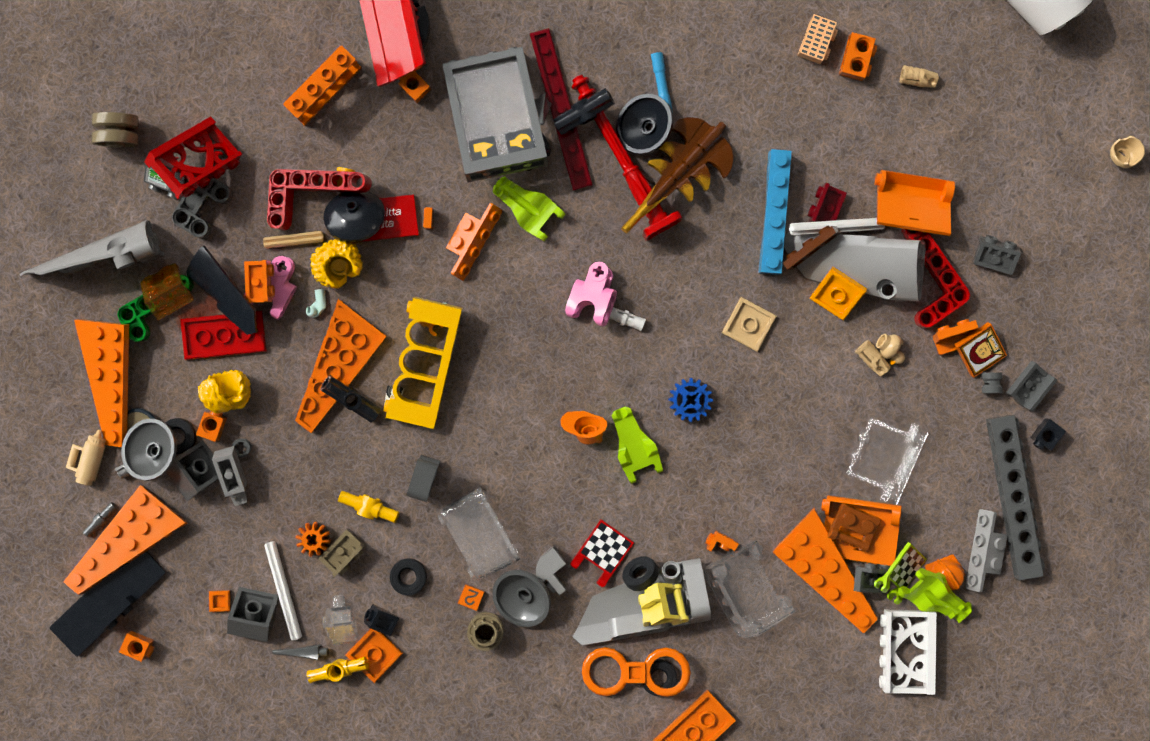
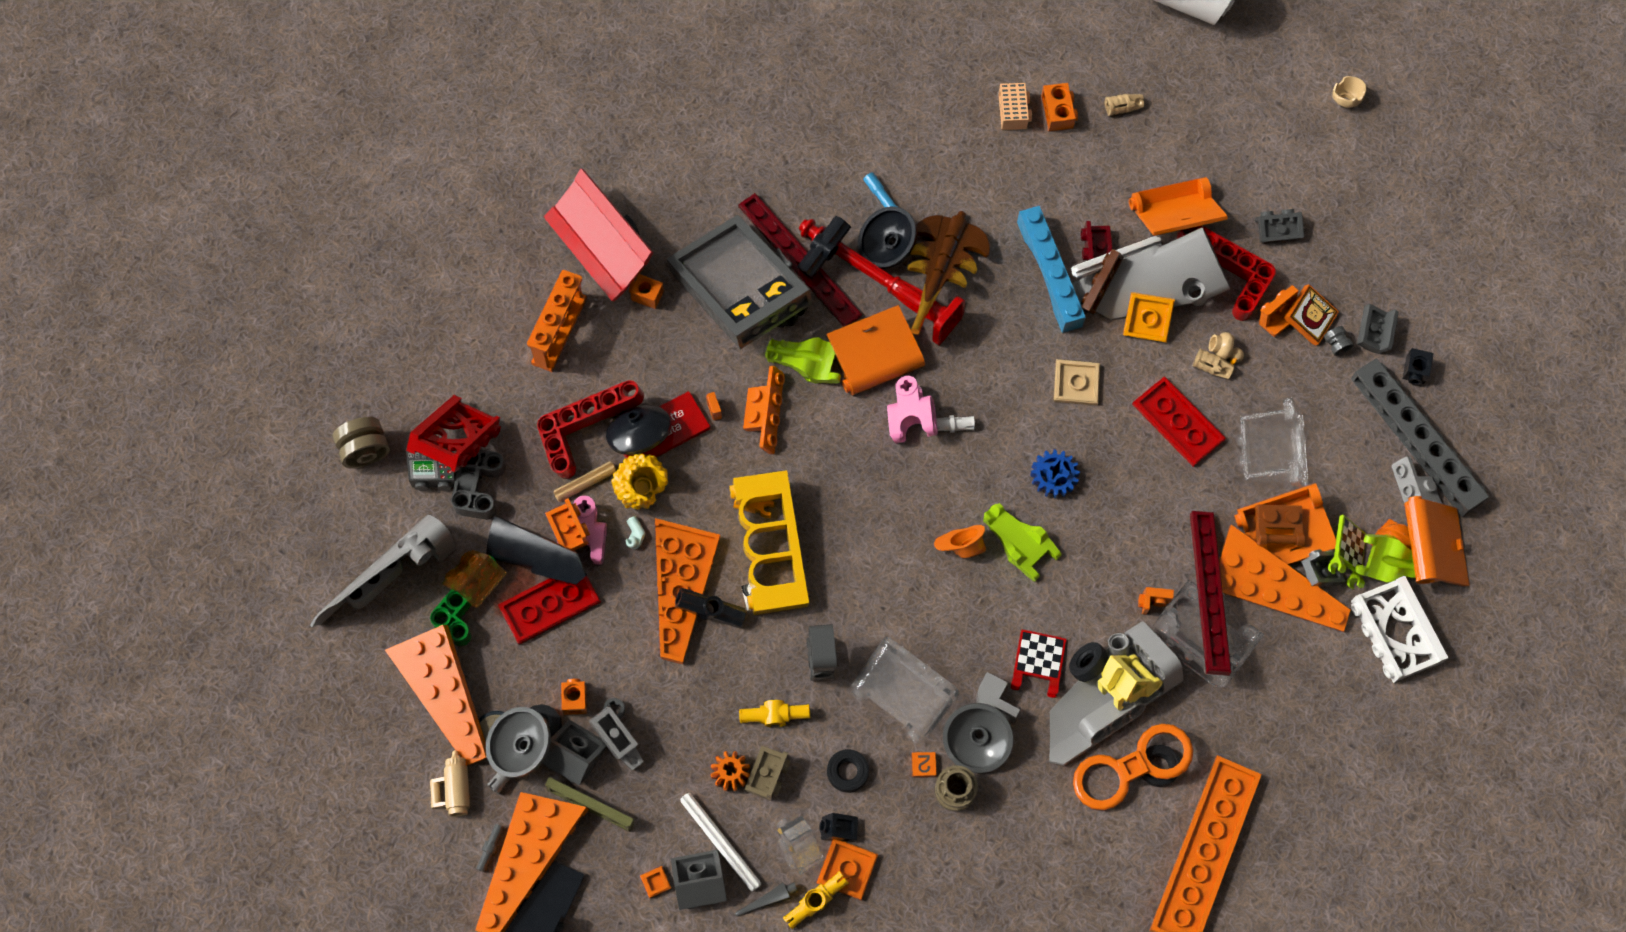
camera: 25 degrees left, 20 degrees down
(192, 521) = (594, 806): none -> olive tile
(225, 391) = (576, 651): yellow hair -> none
(587, 225) = (876, 354): none -> orange door
(767, 559) = (1210, 593): none -> dark red tile
(818, 395) = (1178, 421): none -> red tile
(977, 596) = (1435, 542): none -> orange door

